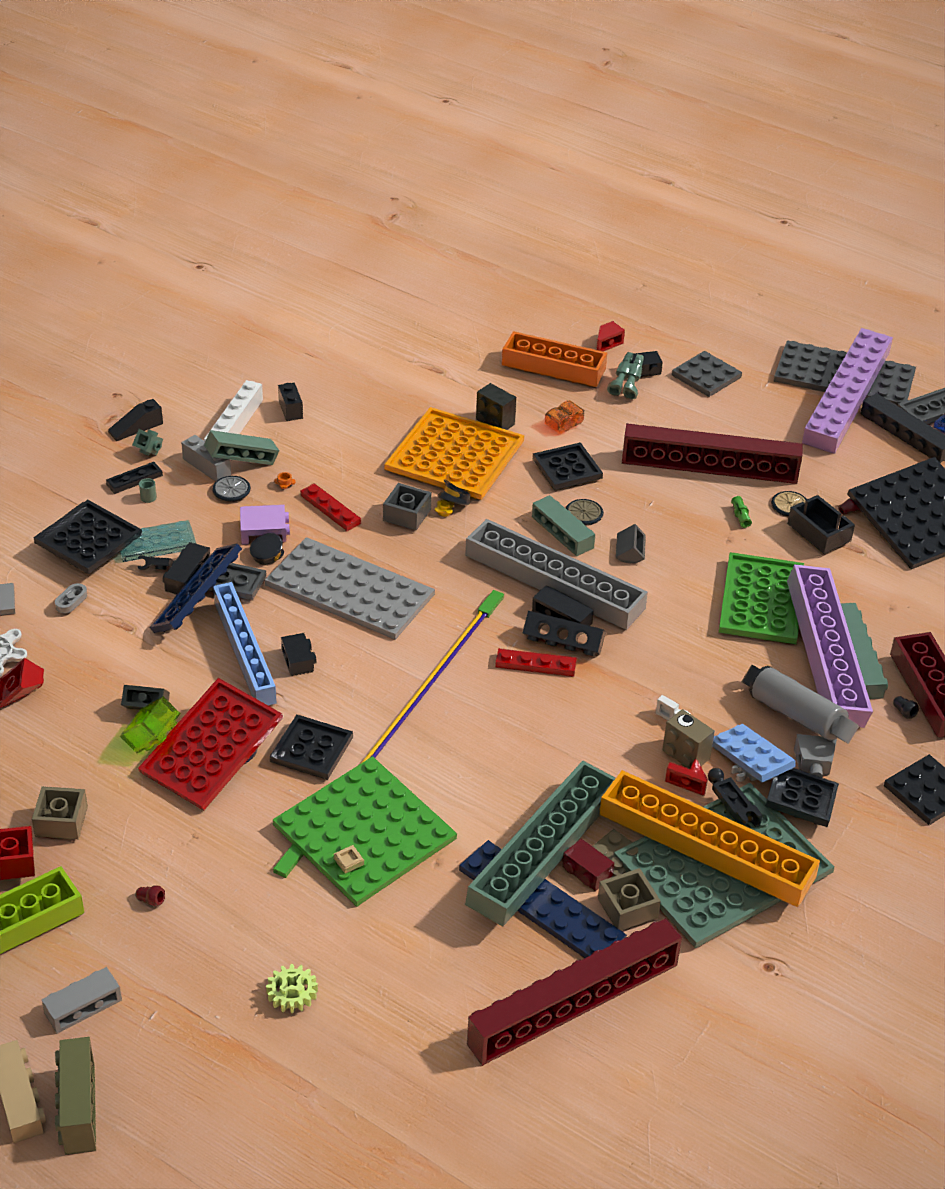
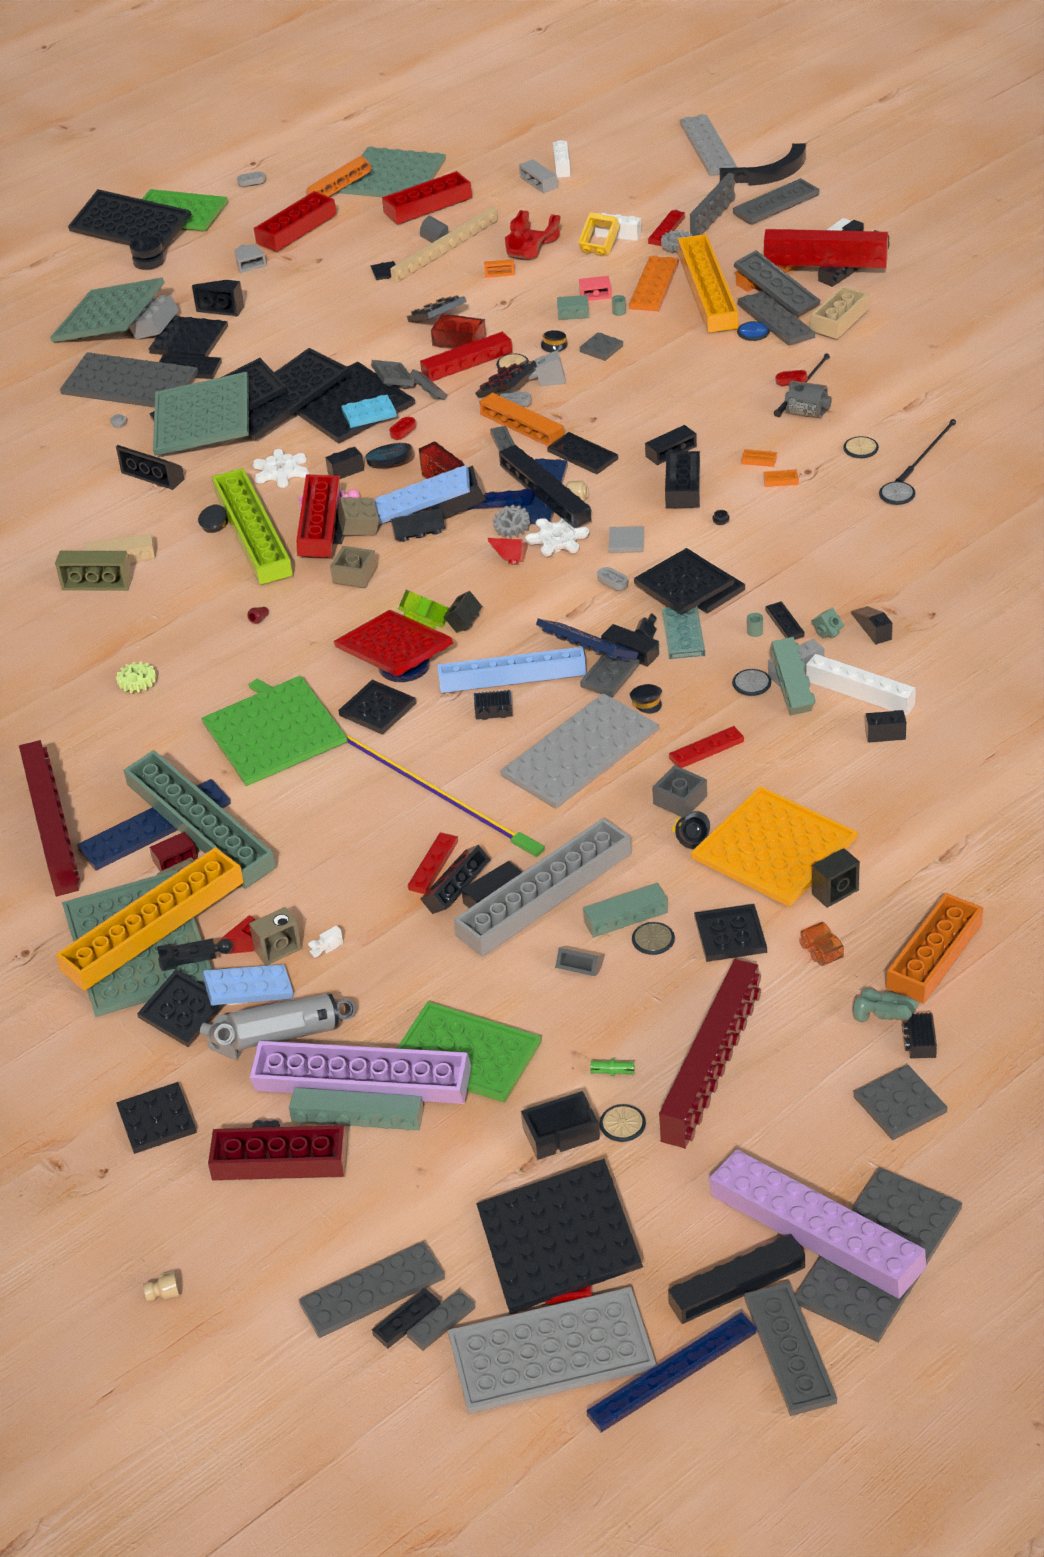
camera: 110 degrees right, 0 degrees up
(81, 1000) = (178, 579): light grey brick -> none
(263, 520) = (683, 695): lavender panel -> none
(284, 480) = (754, 717): orange plate -> none
(348, 859) = (237, 710): tan tile -> none
(610, 336) = (987, 1012): red slope -> none
(629, 899) = (120, 864): dark tan brick -> none

